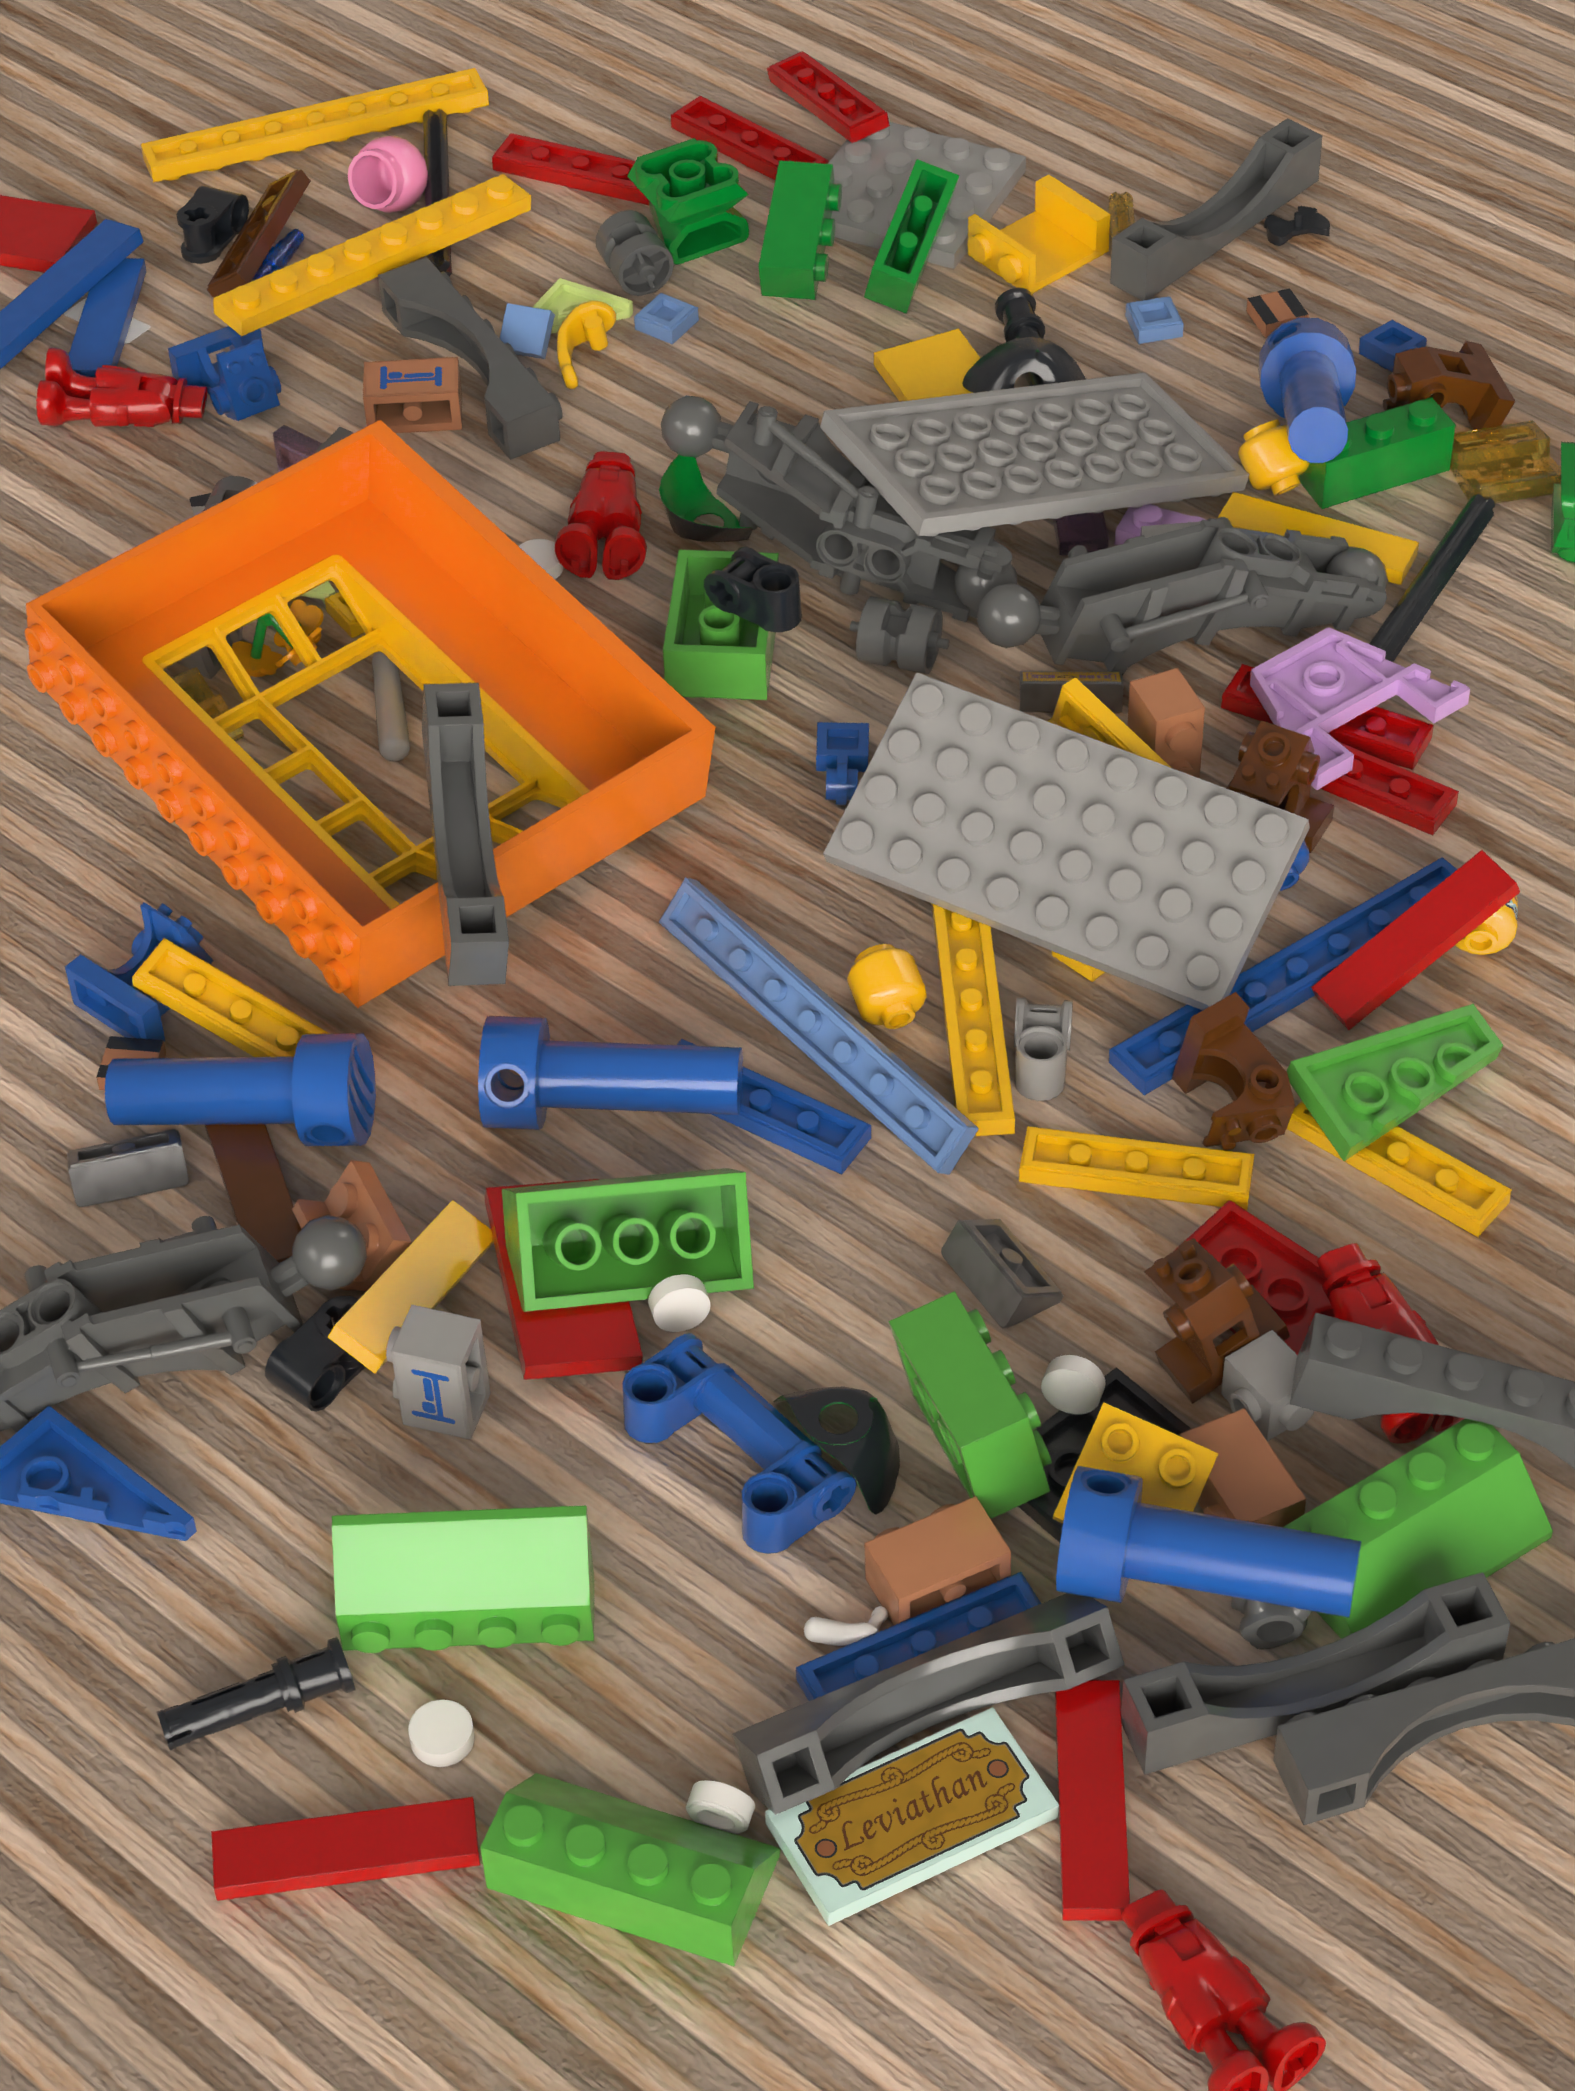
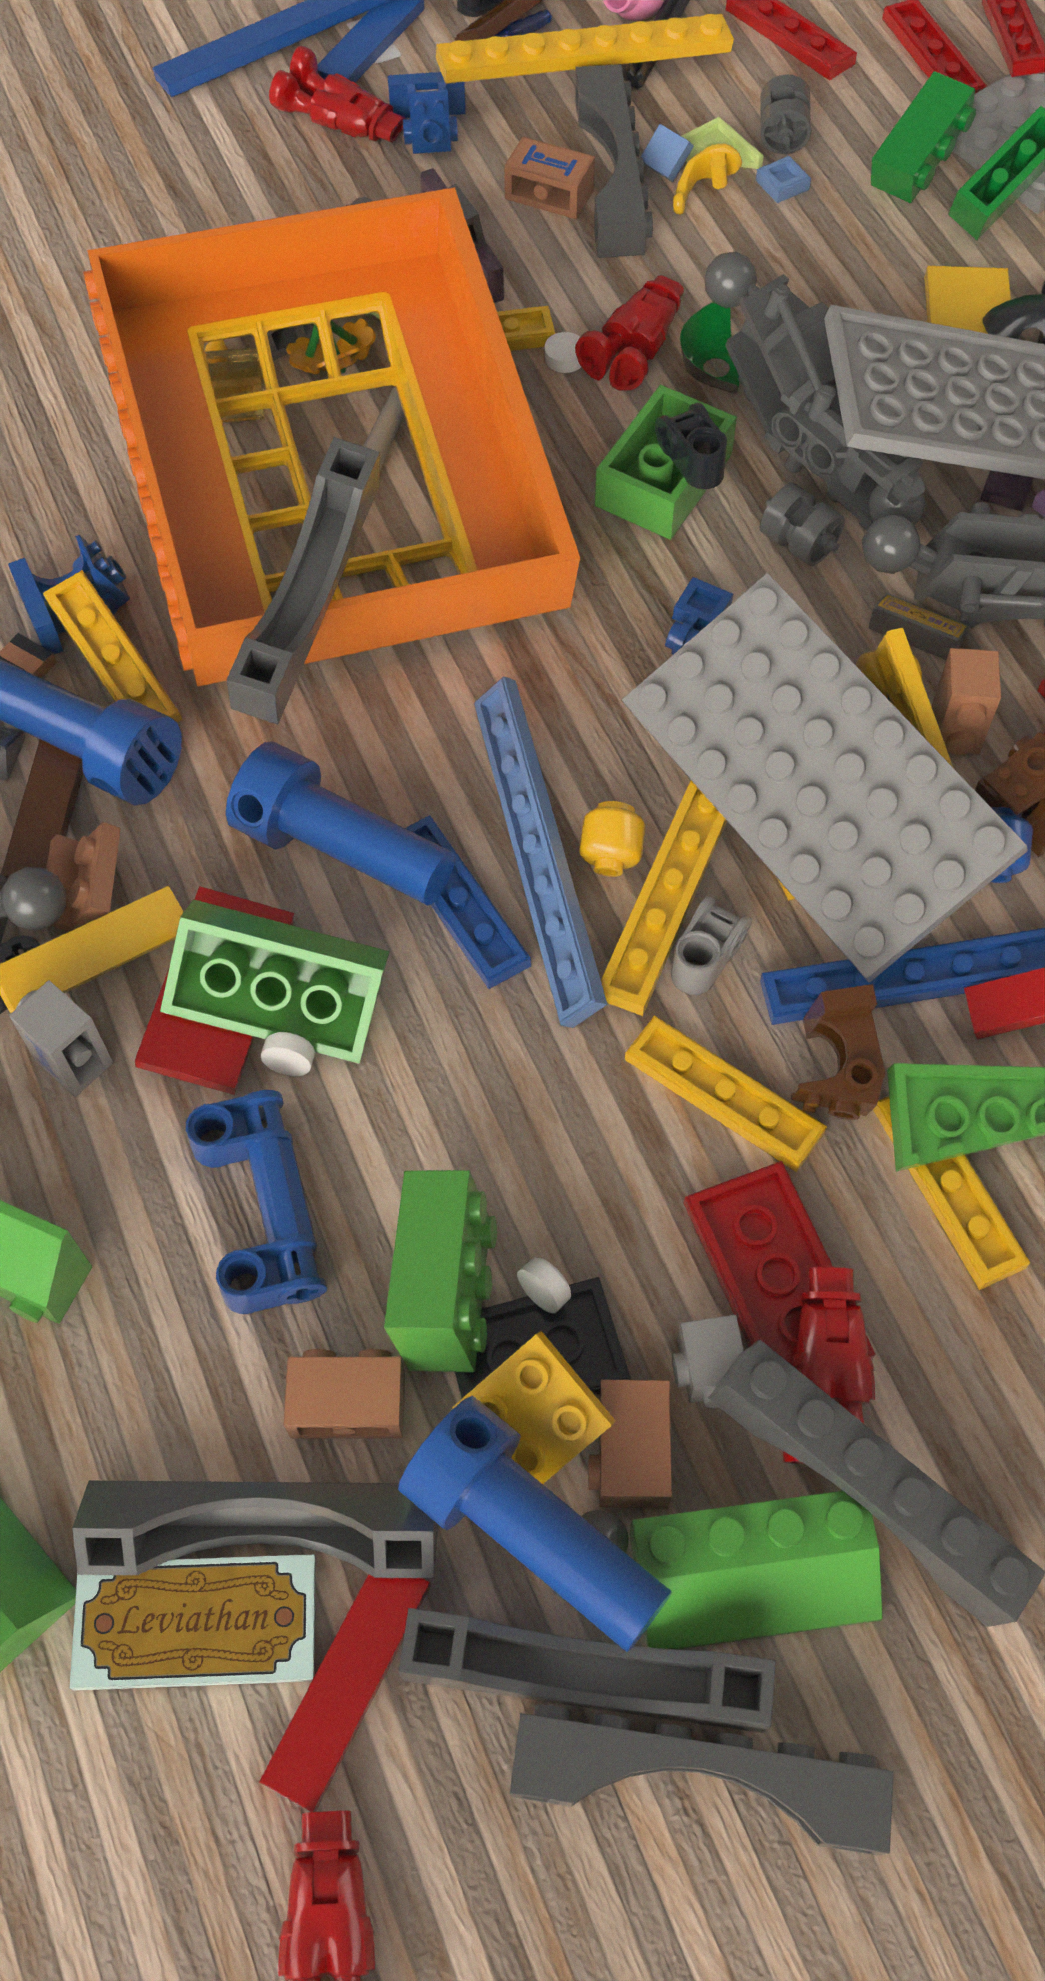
camera: 25 degrees right, 15 degrees up
(692, 198) = (853, 83): green piece -> none
(720, 1806) = (48, 1538): white tile -> none
(841, 1633) = (243, 1418): white piece -> none
(866, 1450) = (358, 1264): black piece -> none
(916, 1636) = (296, 1457): blue tile -> none
(999, 1271) = (560, 1138): flat silver slope -> none
(1203, 1305) = (686, 1282): reddish brown tile -> none

